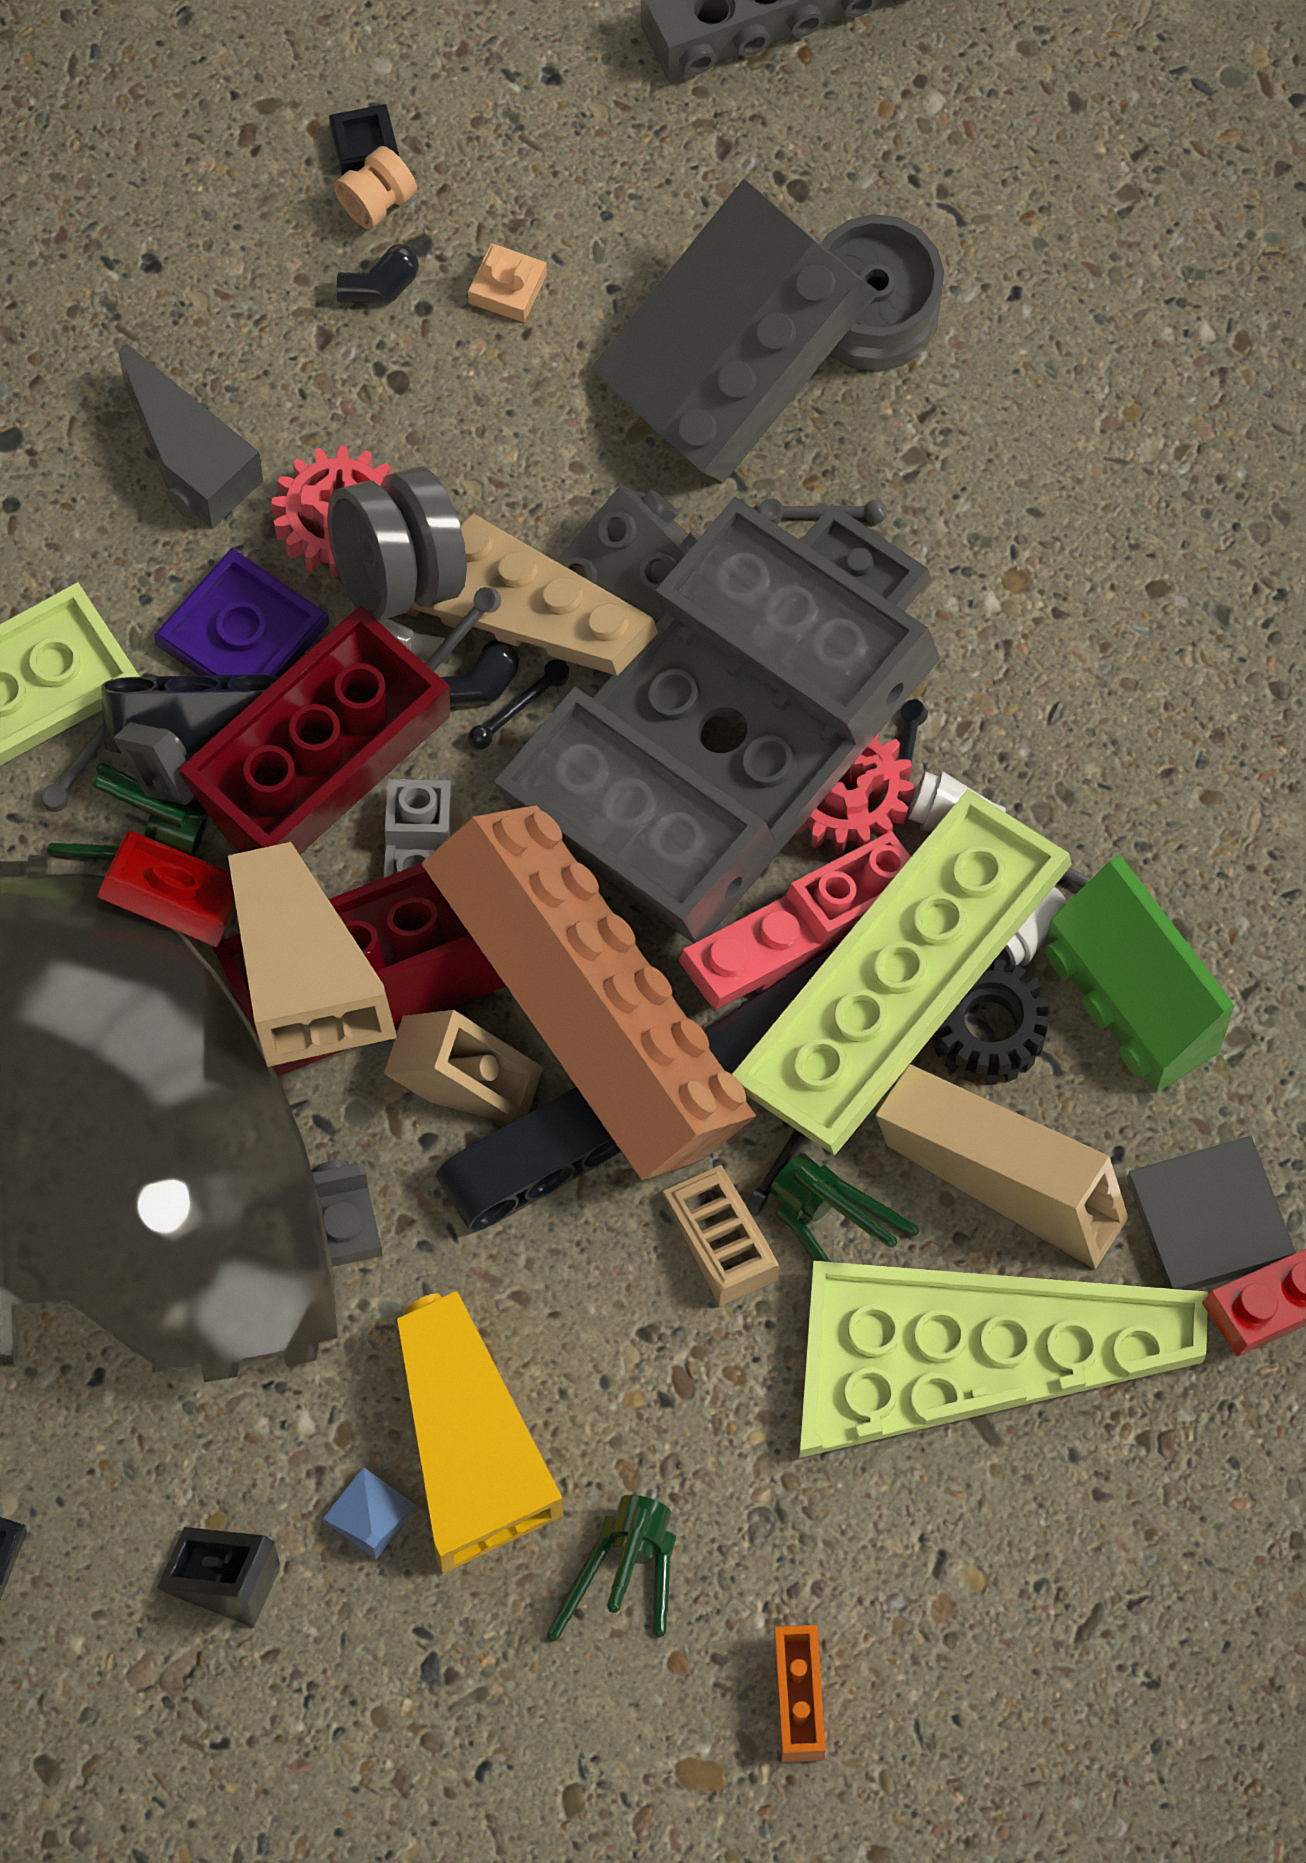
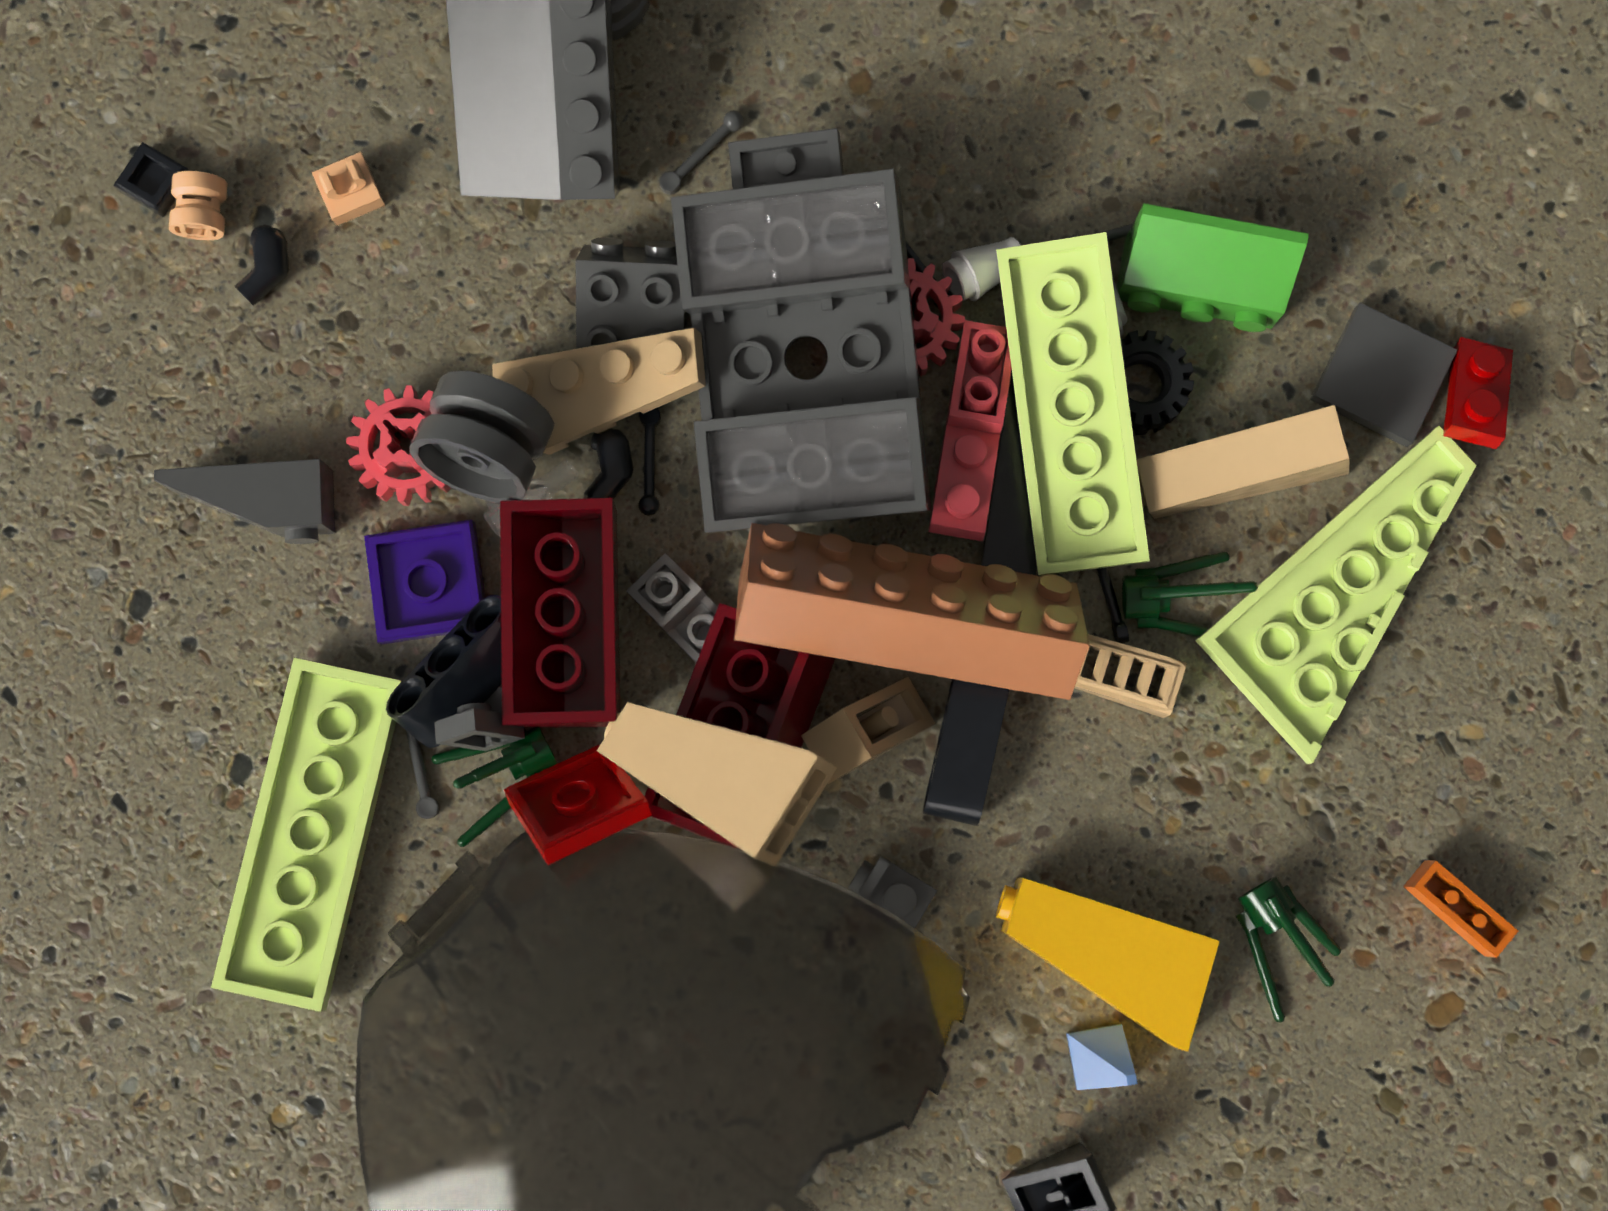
camera: 45 degrees left, 15 degrees up
(485, 600) = (571, 418): dark grey hinge -> none

